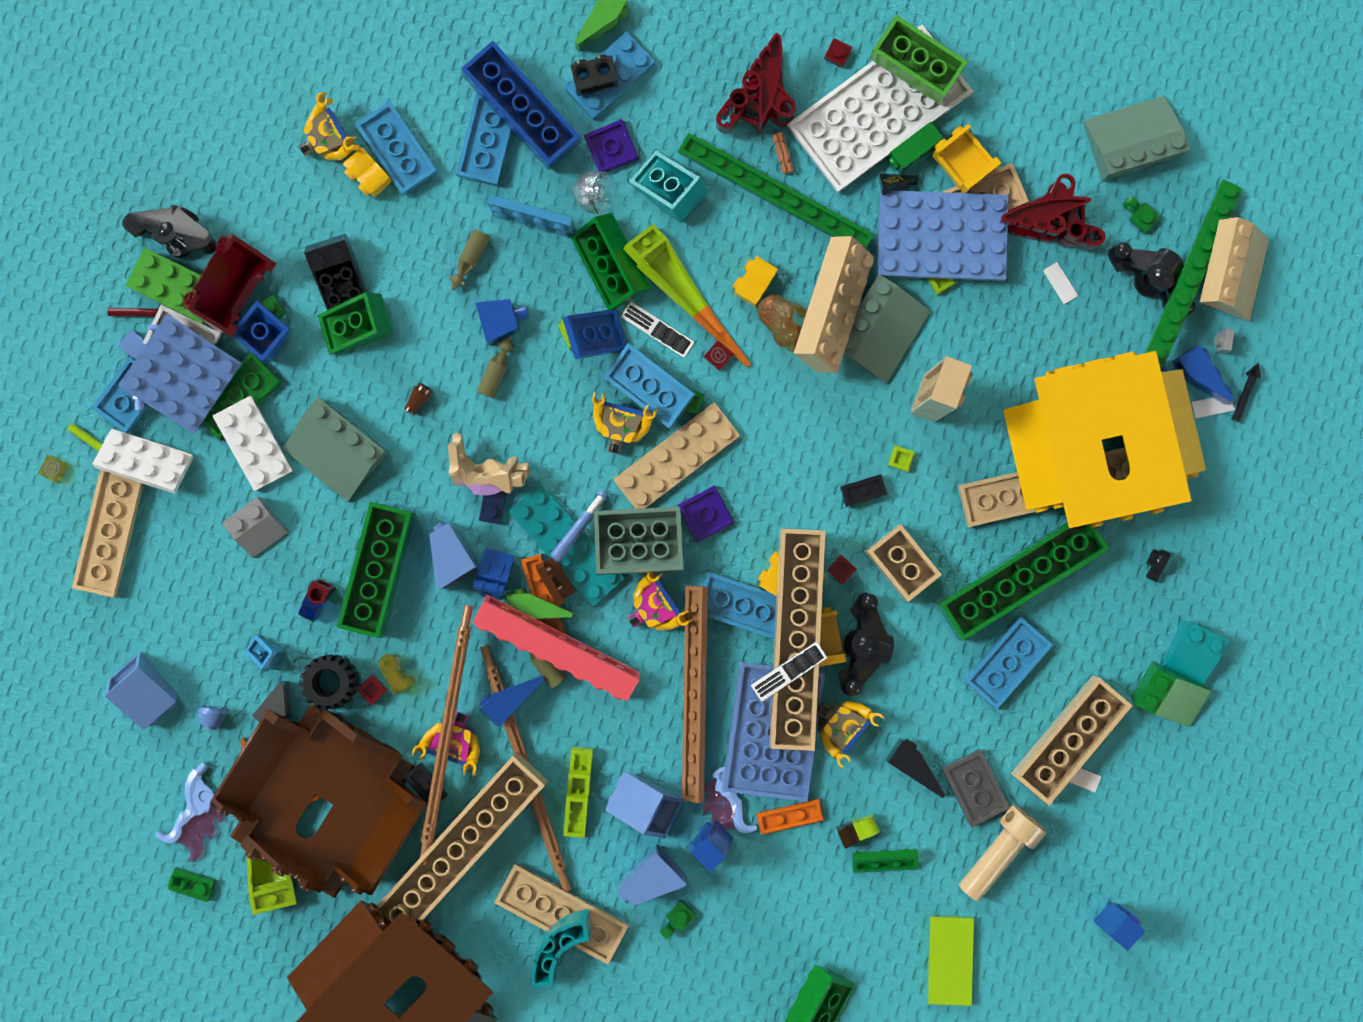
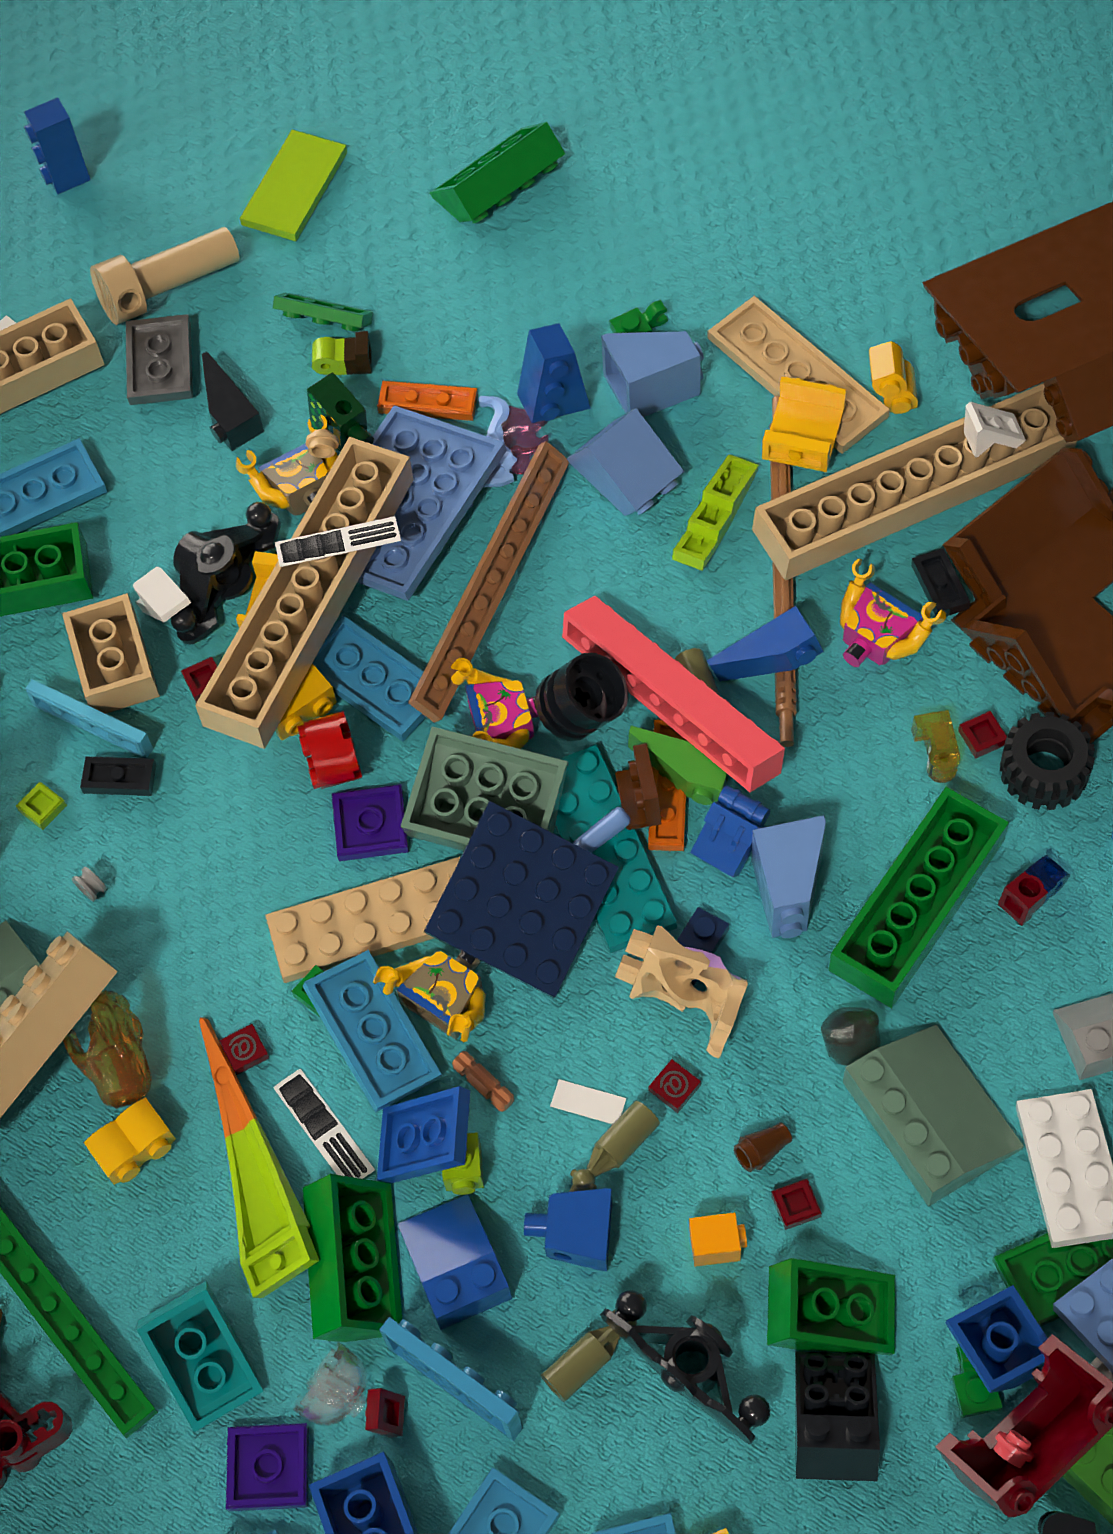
camera: 155 degrees left, 25 degrees down
(239, 277) = (1013, 1448): none -> coral plate
(390, 477) = (851, 1034): none -> clear smoke hair
(391, 375) = (796, 1204): none -> dark red tile
(411, 255) = (701, 1337): none -> black piece
(416, 891) = (988, 426): none -> white slope
(425, 339) = (716, 1239): none -> light orange brick
(446, 732) = (878, 636): medium nougat axle -> none
(477, 417) = (674, 1086): none -> dark red tile
(495, 922) = (893, 377): none -> yellow brick
(521, 393) = (587, 1102): none -> white sticker
(541, 869) = (804, 424): none -> yellow panel
(557, 280) = (455, 1261): none -> blue slope
(560, 937) = (811, 334): teal brick -> none
(561, 191) = (385, 1412): none -> dark red plate
(580, 383) = (483, 1081): none -> nougat axle
(594, 487) = (521, 899): none -> dark blue plate
(607, 626) = (581, 696): none -> black wheel
(743, 543) = (331, 750): none -> red brick
(834, 747) = (322, 443): none -> tan plate
(842, 782) = (340, 408): none -> dark green torso
(848, 418) = (89, 884): none -> light grey bush
(887, 609) = (159, 595): none -> white slope
(898, 519) = (89, 719): none -> medium azure tile

